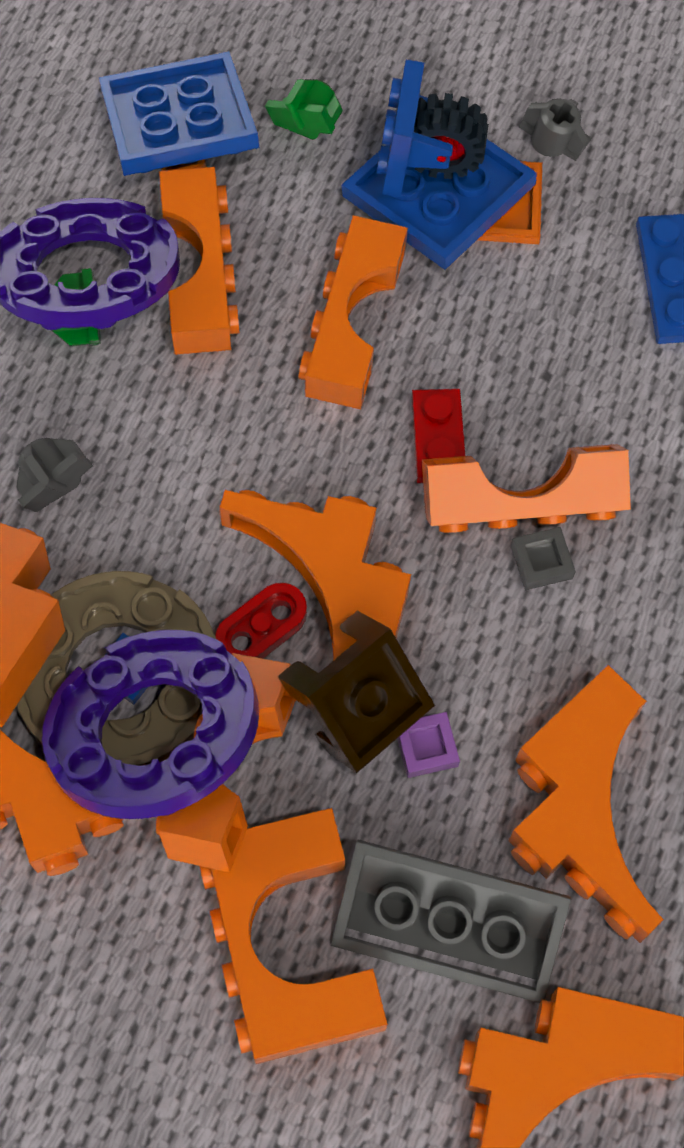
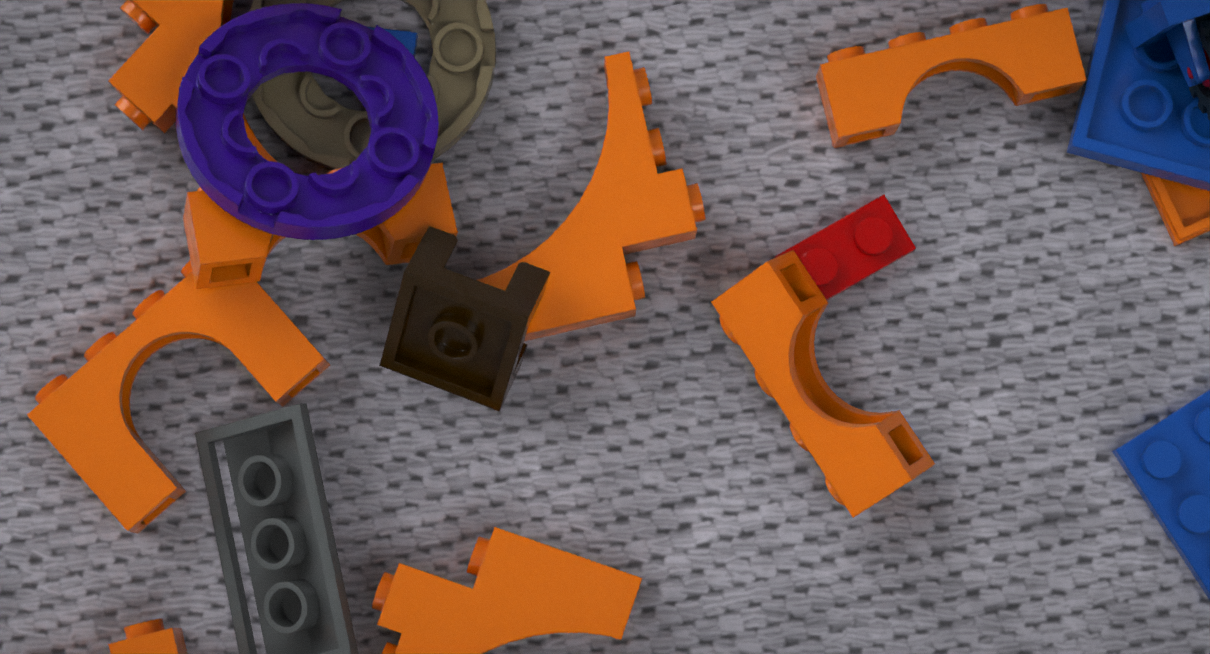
camera: 65 degrees right, 15 degrees up
(259, 625) = (504, 174): red plate -> none
(428, 746) = (458, 427): medium lavender plate -> none
(542, 558) = (748, 446): dark grey plate -> none

